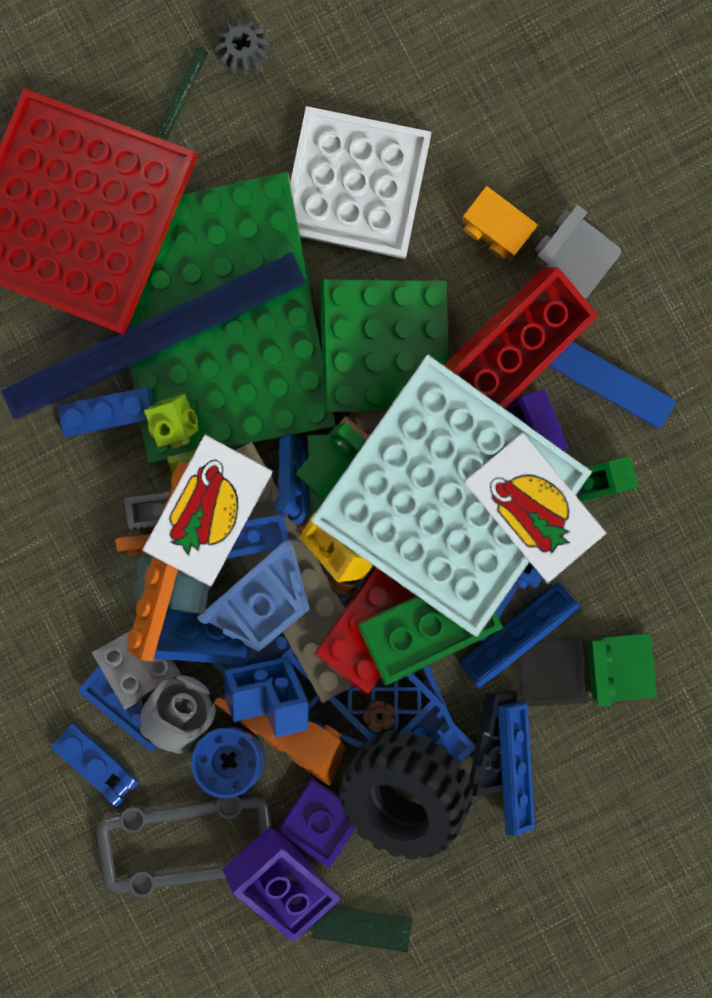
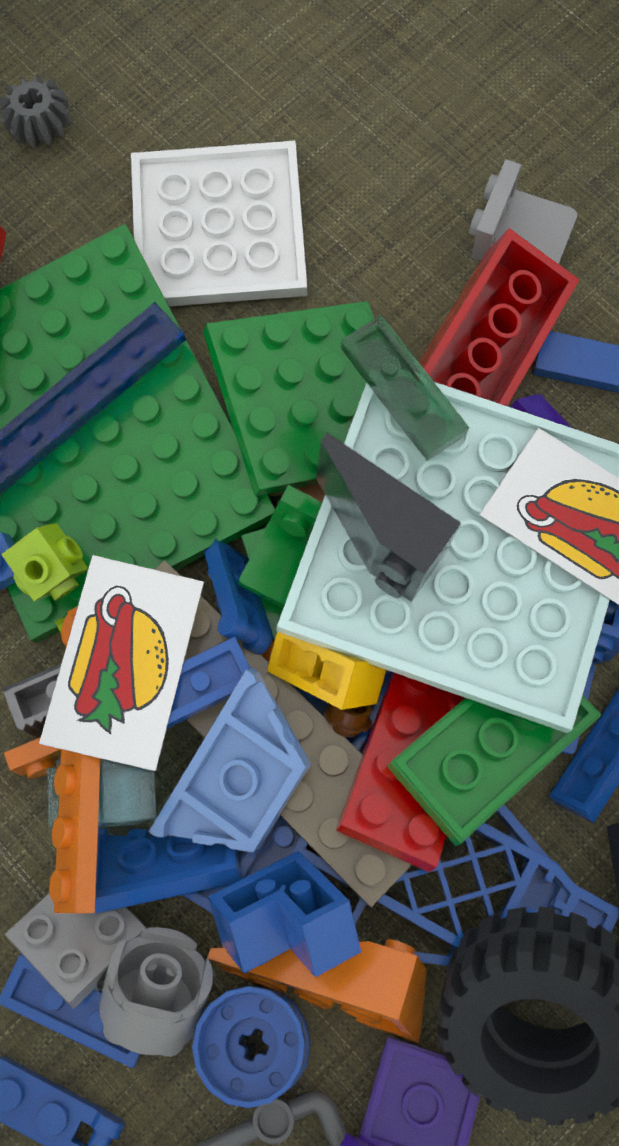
camera: 10 degrees left, 15 degrees down
(375, 724) = (448, 903): reddish brown plate -> none
(398, 484) = (388, 522): none -> black slope
(440, 383) = (404, 387): none -> clear green plate
(498, 224) = (412, 220): light orange brick -> none

